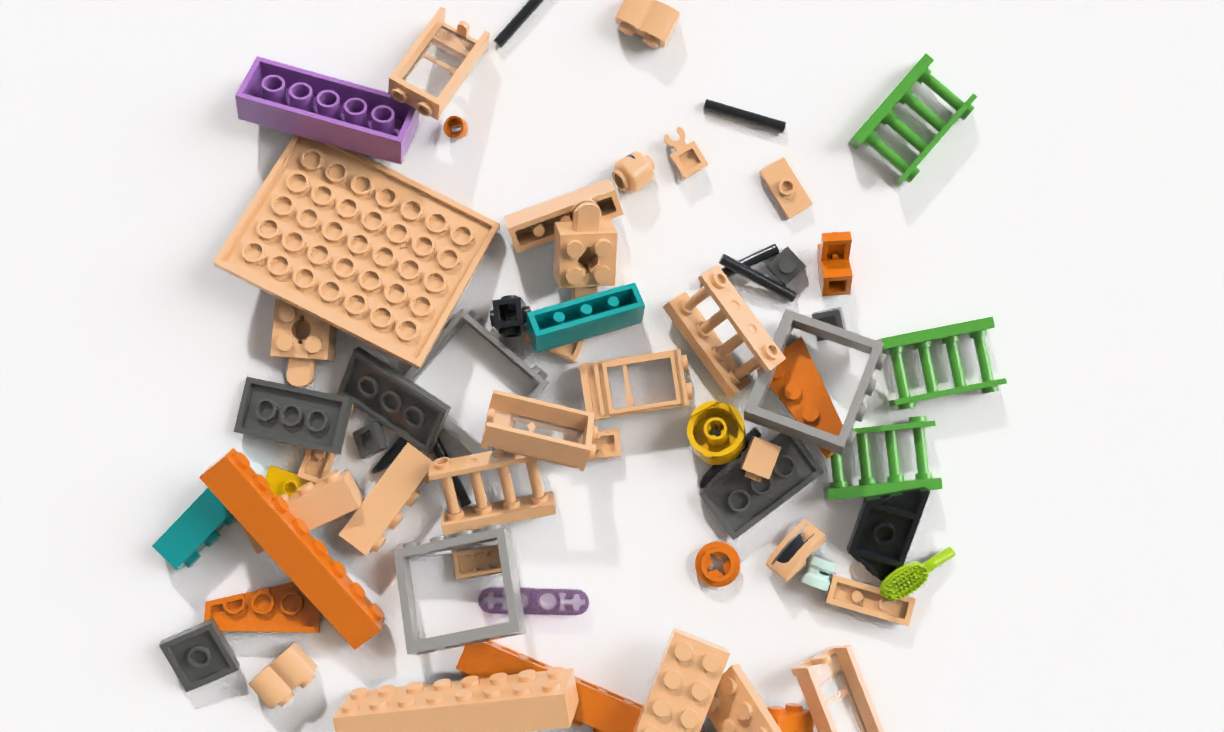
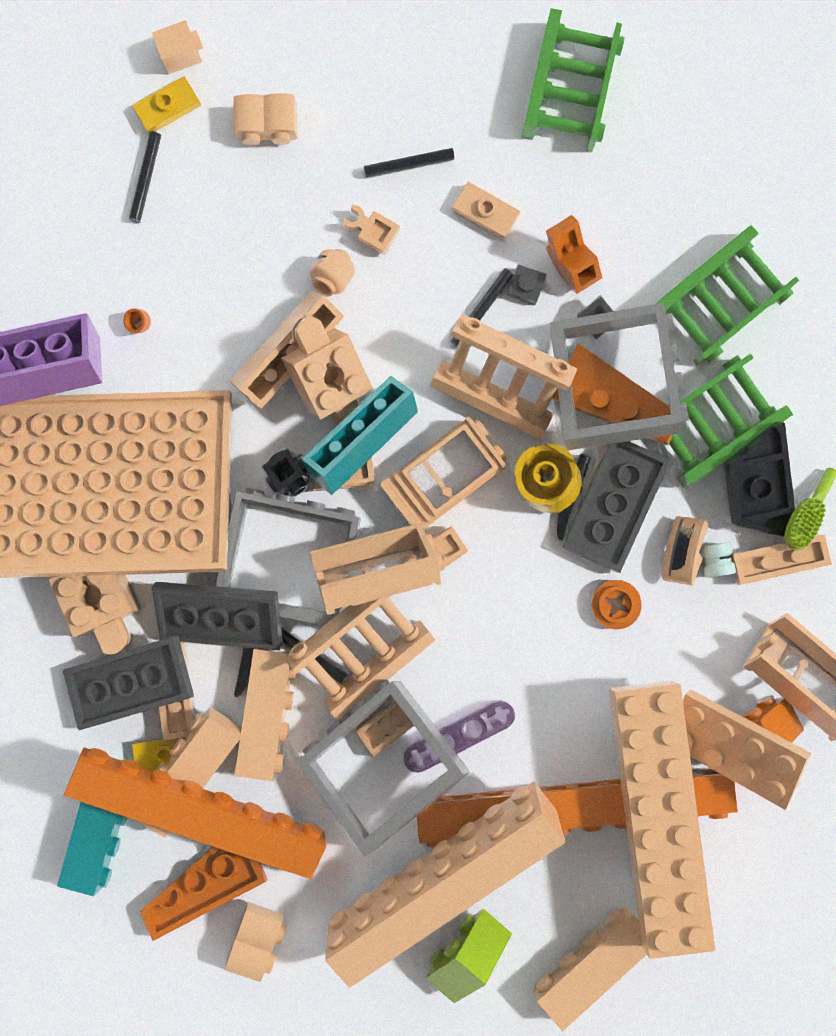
camera: 25 degrees left, 0 degrees up
(199, 655) = (162, 967): dark grey hinge -> none
(370, 440) = (216, 667): dark grey plate -> none
(436, 66) = (84, 269): door -> none
(757, 277) = (505, 309): black bar -> none
(759, 459) = (603, 480): light nougat brick -> none

